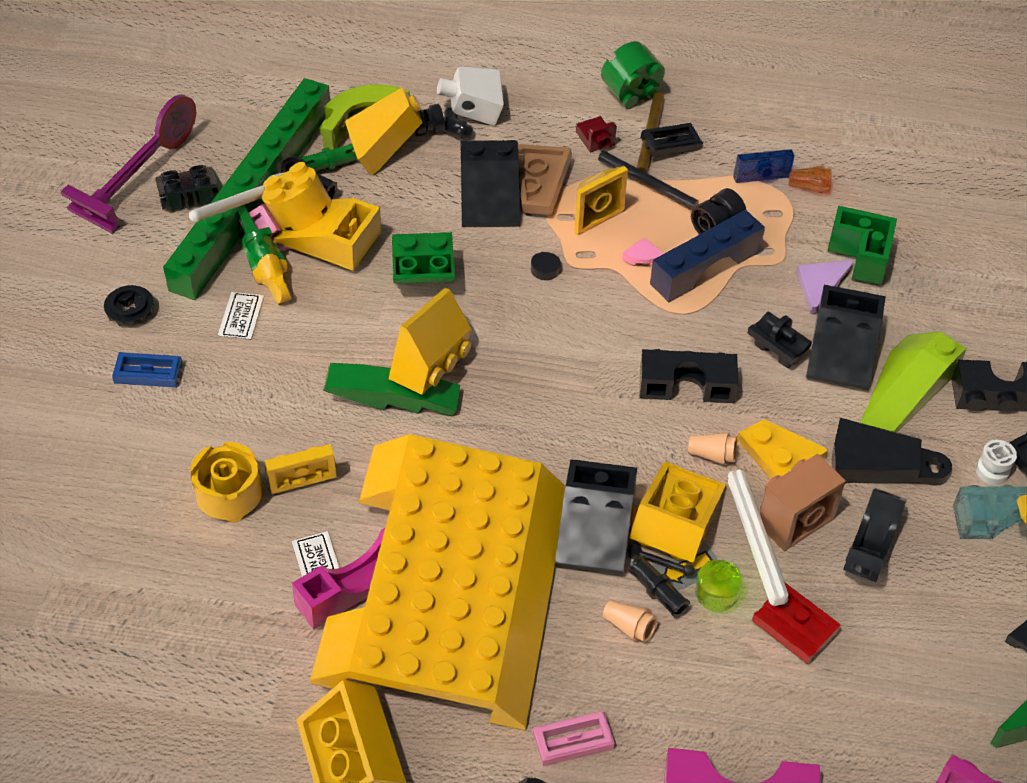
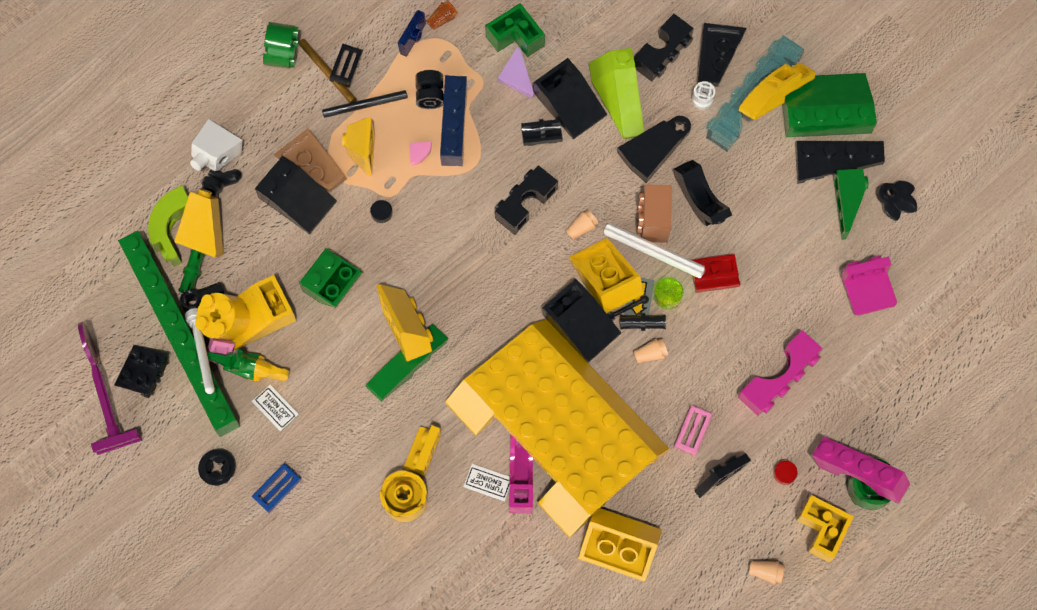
camera: 50 degrees left, 20 degrees up
(596, 133) = (303, 102): dark red bracket -> none
(777, 448) = (607, 193): yellow wing -> none

